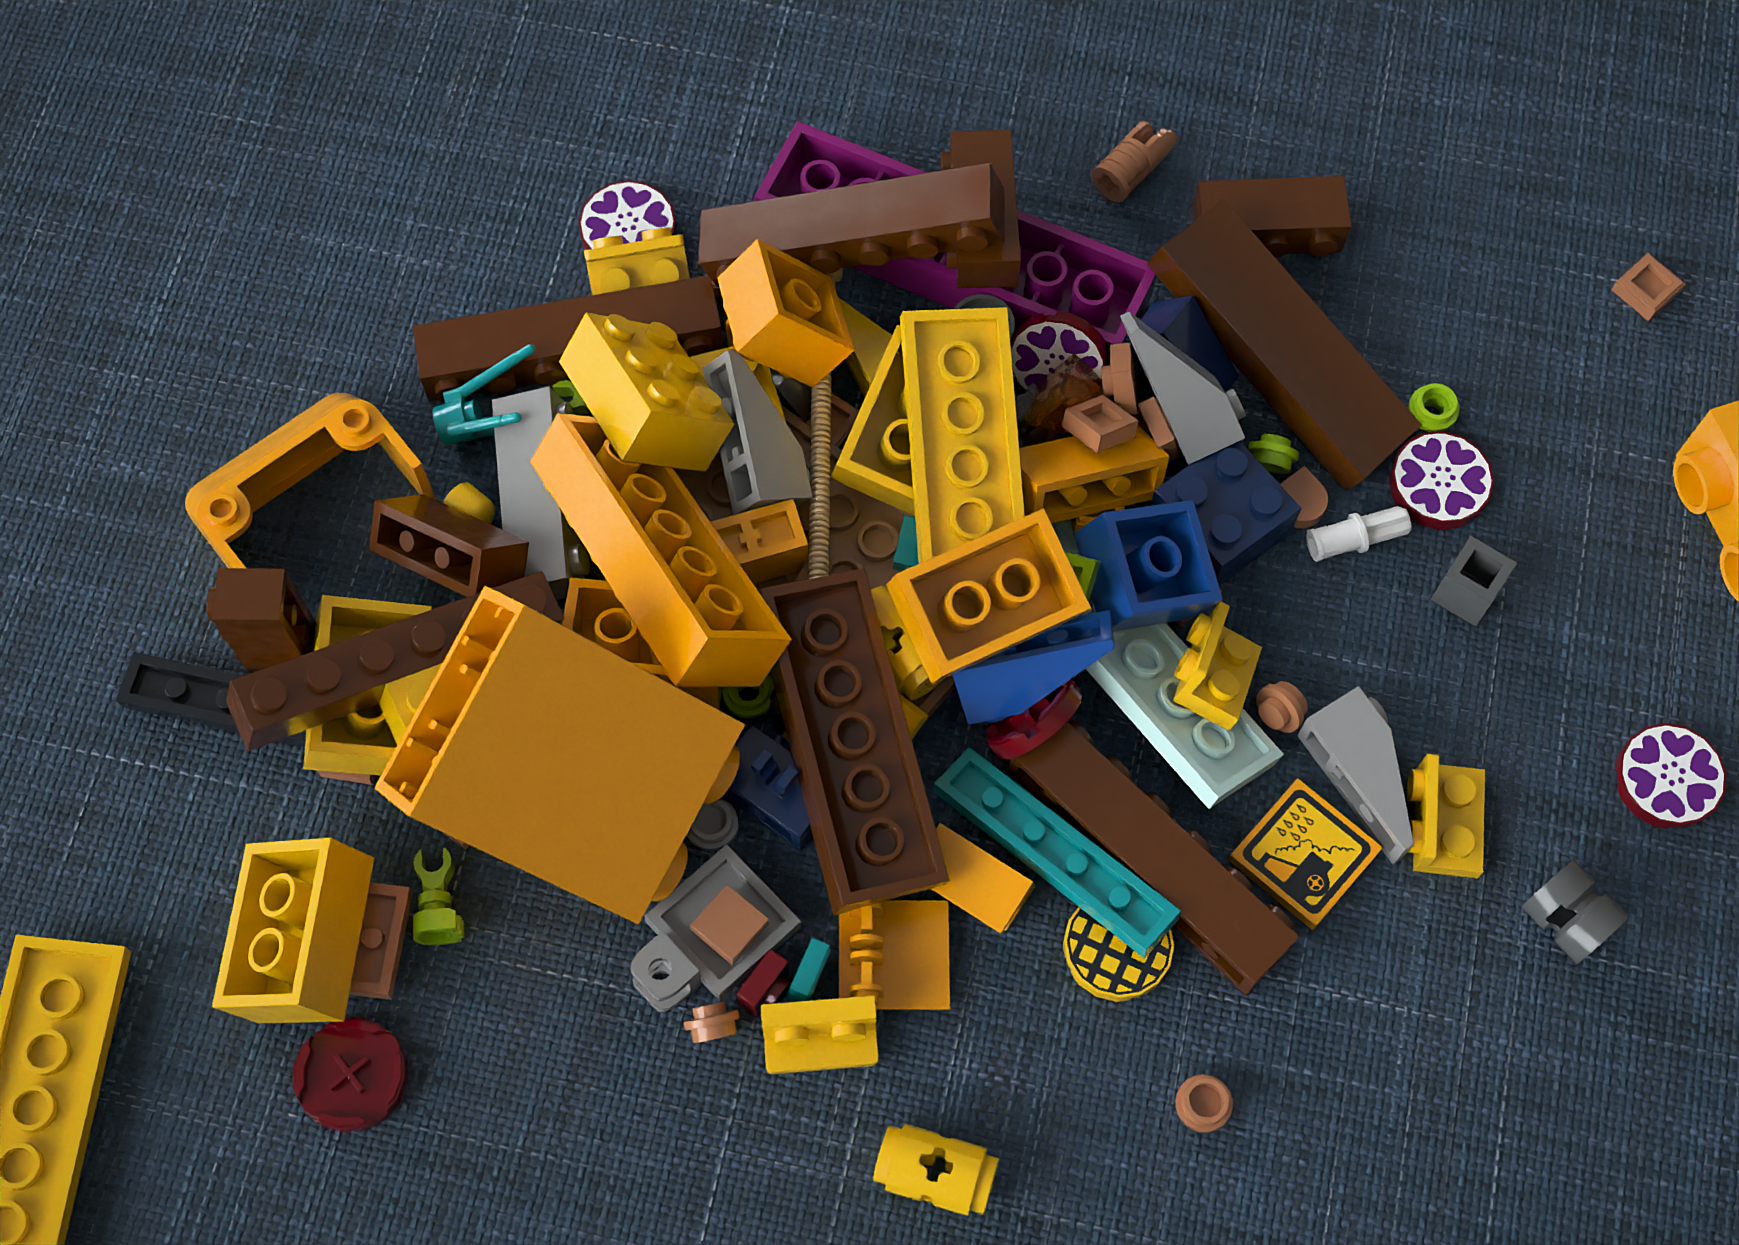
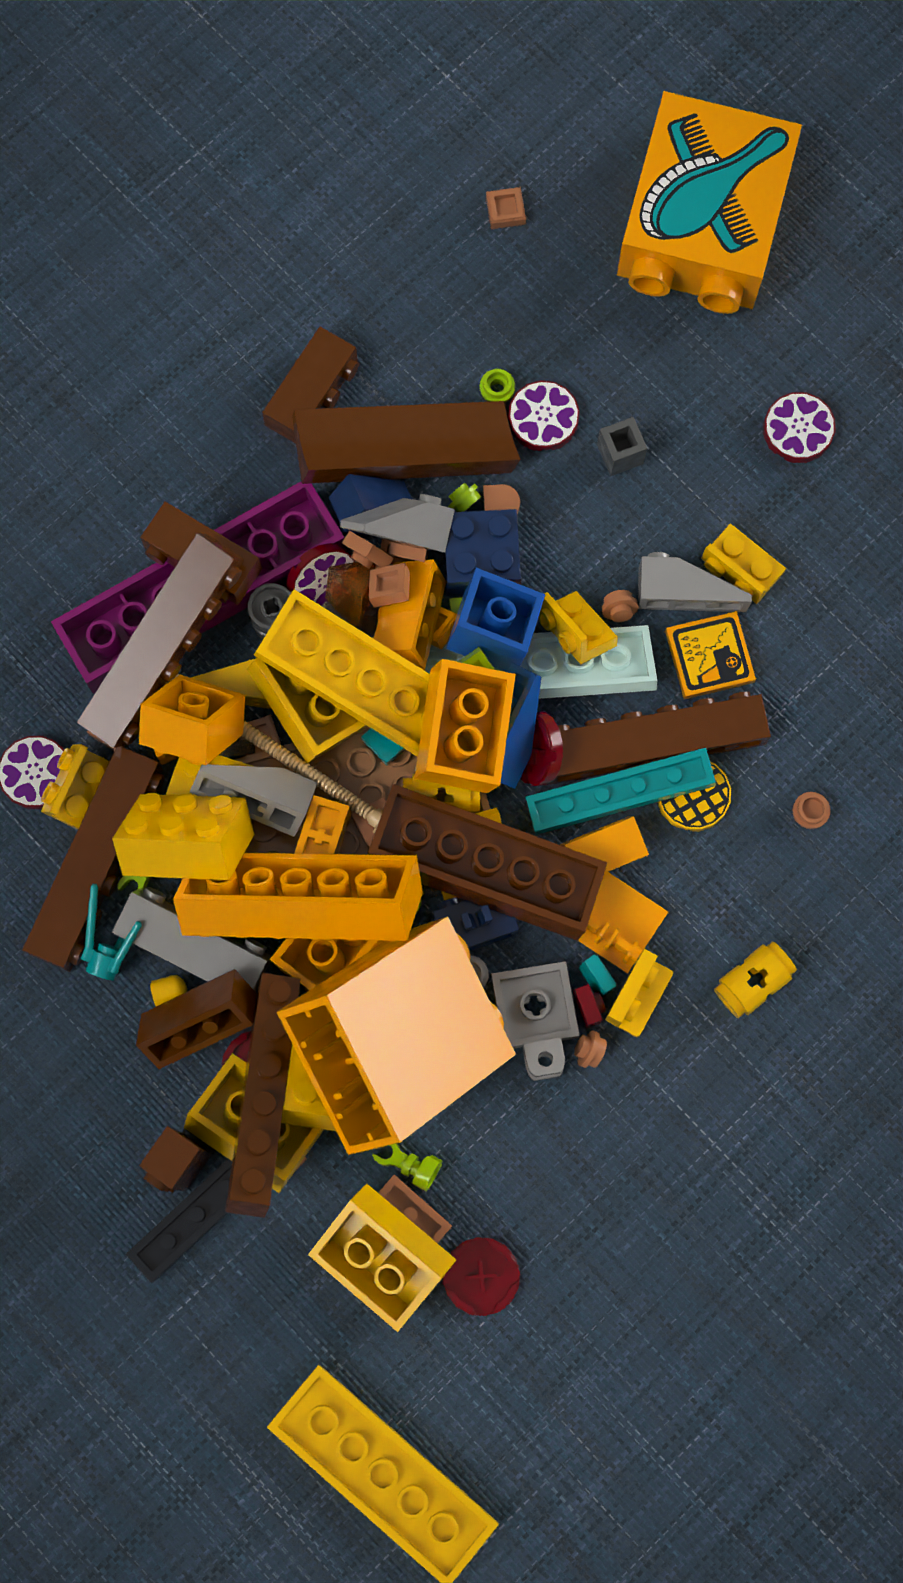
camera: 55 degrees left, 10 degrees up
(227, 498) = (53, 1137): light orange windscreen -> none
(729, 924) = (544, 1002): nougat tile -> none
(1132, 161) = (213, 439): nougat hinge -> none
(1357, 532) = (544, 486): white axle -> none
(1575, 911) = (843, 536): dark grey wheel -> none

